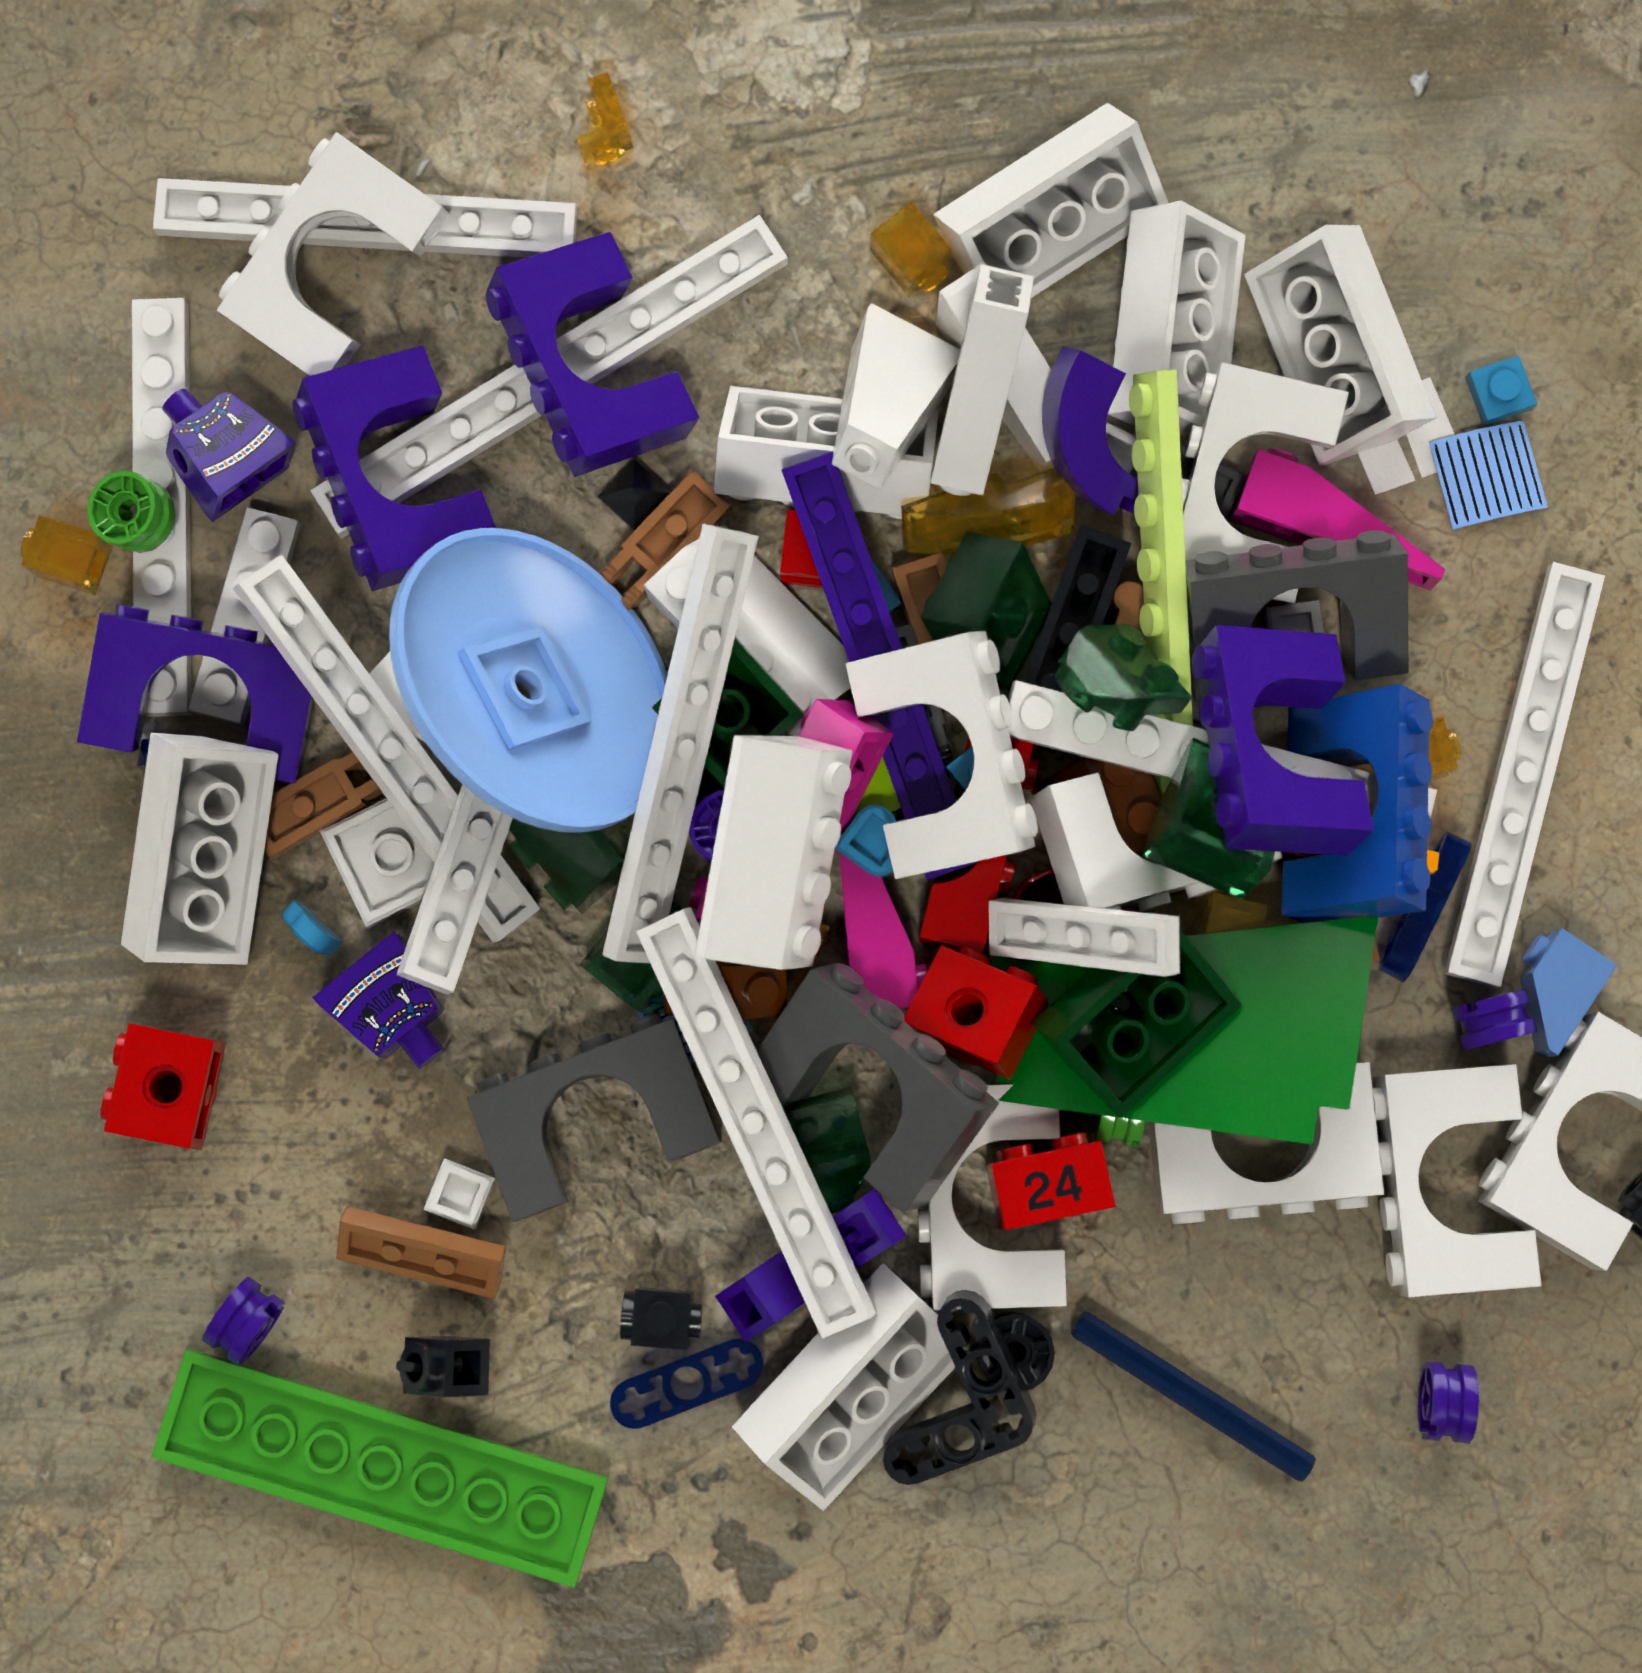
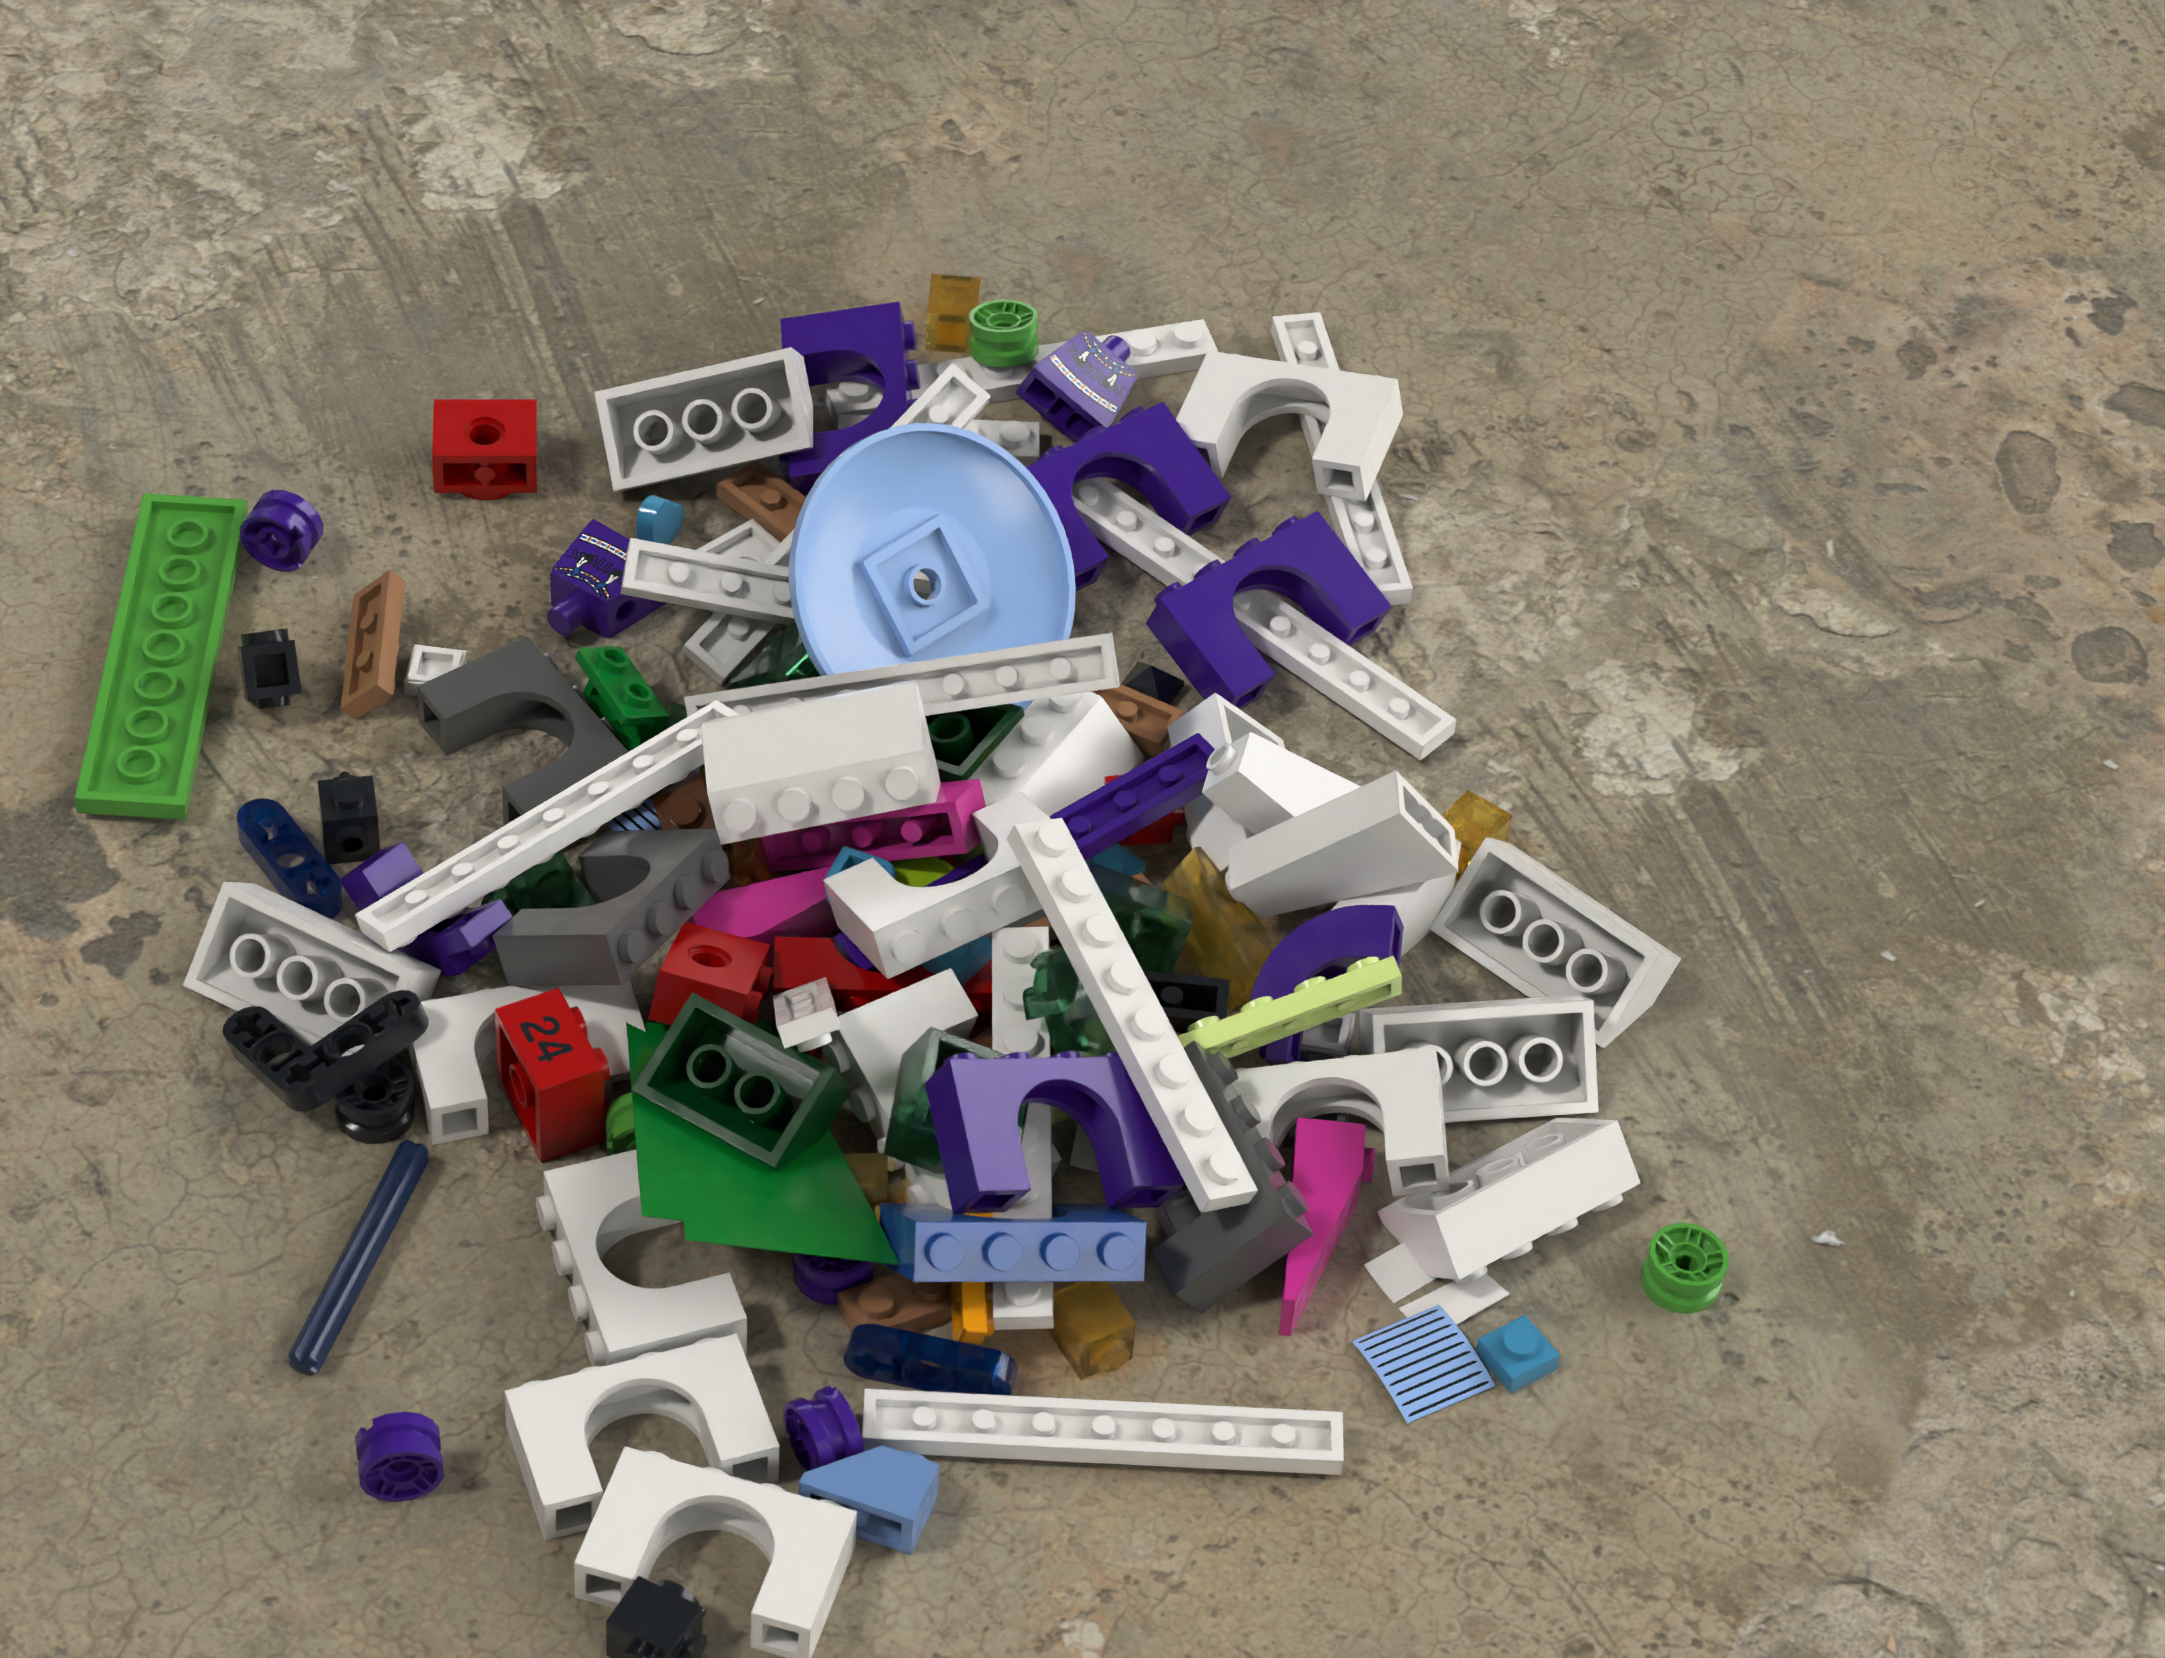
camera: 70 degrees right, 35 degrees down
(566, 1018) = (621, 695): none -> green bracket
(610, 132) = (1503, 604): clear yellow bracket -> none
(1173, 635) = (1132, 1015): none -> white plate
(1432, 199) = (1688, 1248): none -> bright green wheel

